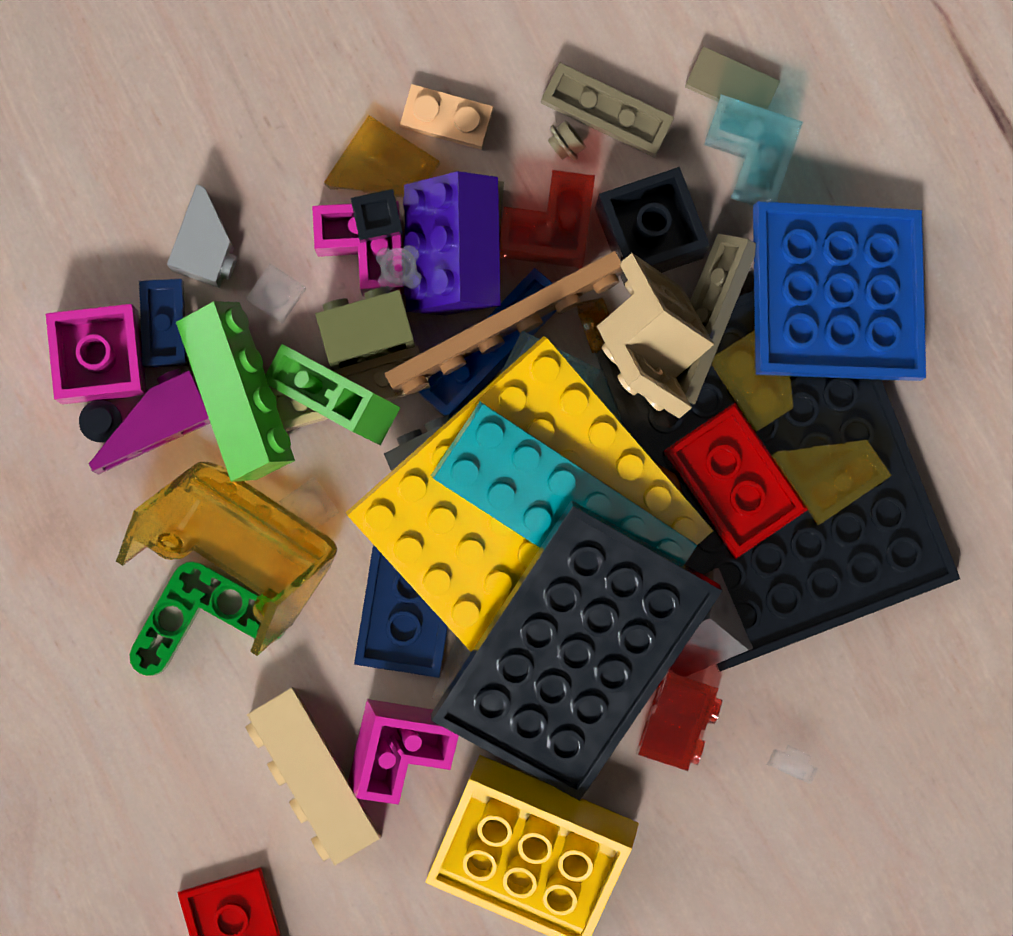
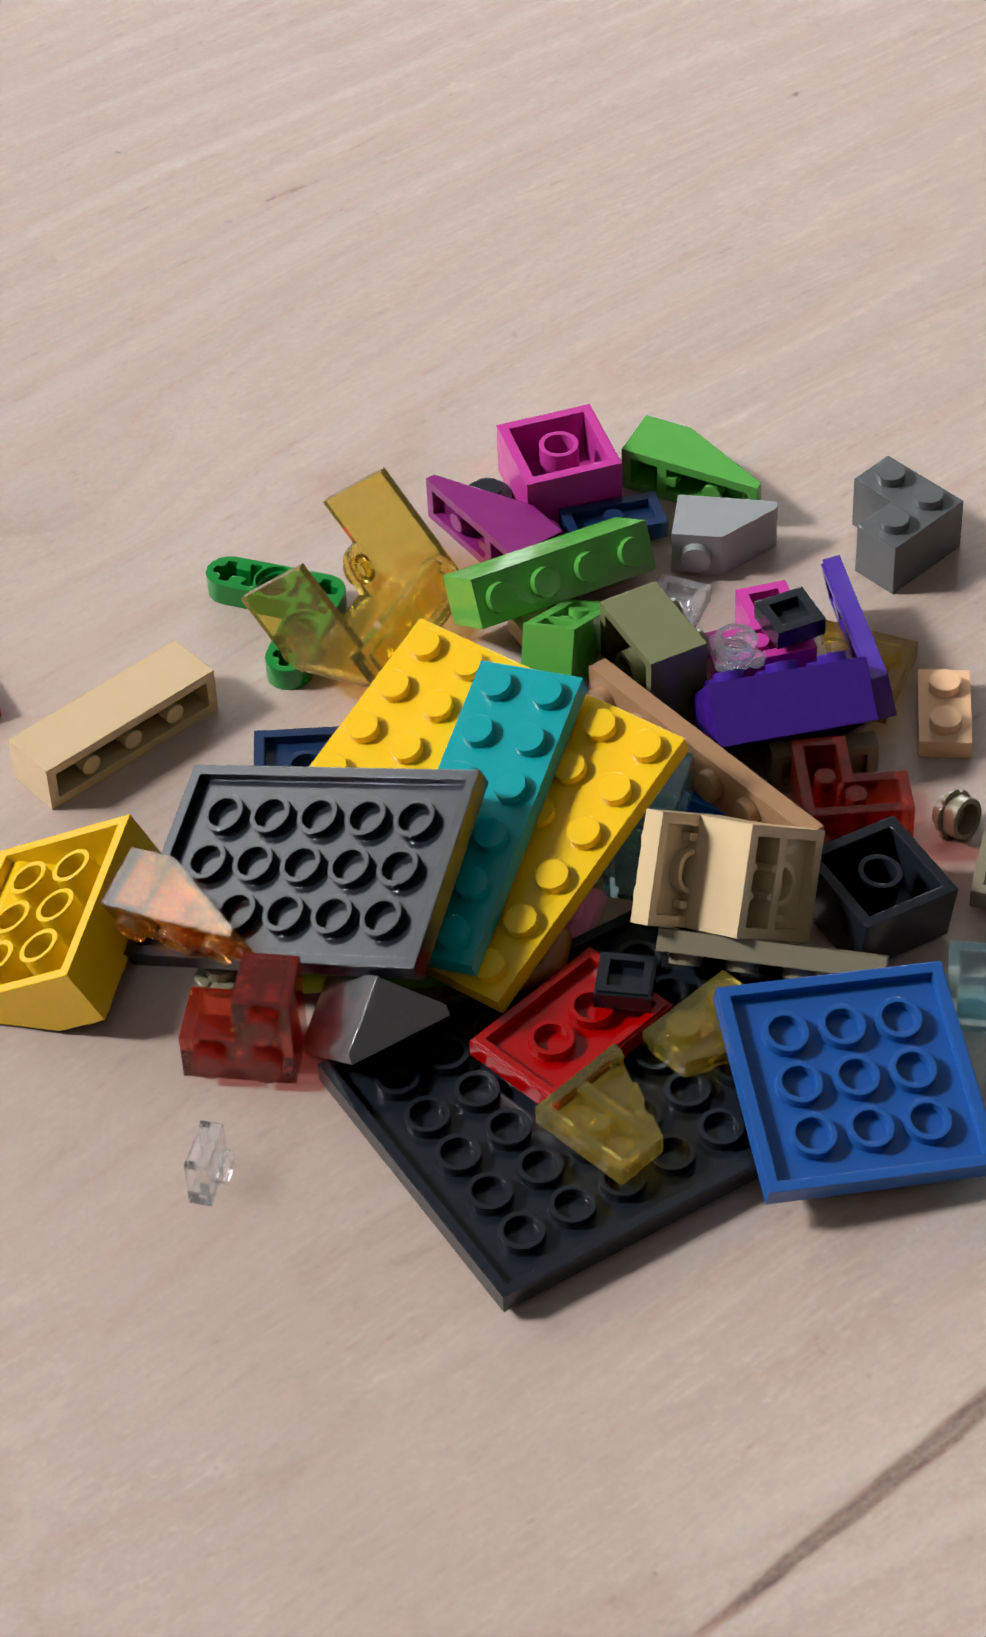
camera: 85 degrees right, 40 degrees down
(110, 249) = (681, 462): none -> bright green slope
(230, 78) = (902, 524): none -> dark grey brick
(378, 164) = (857, 632): none -> dark purple tile
(389, 741) = (150, 764): dark pink brick -> none
(580, 756) = (163, 902): none -> clear orange slope
(714, 432) = (625, 981): none -> black tile

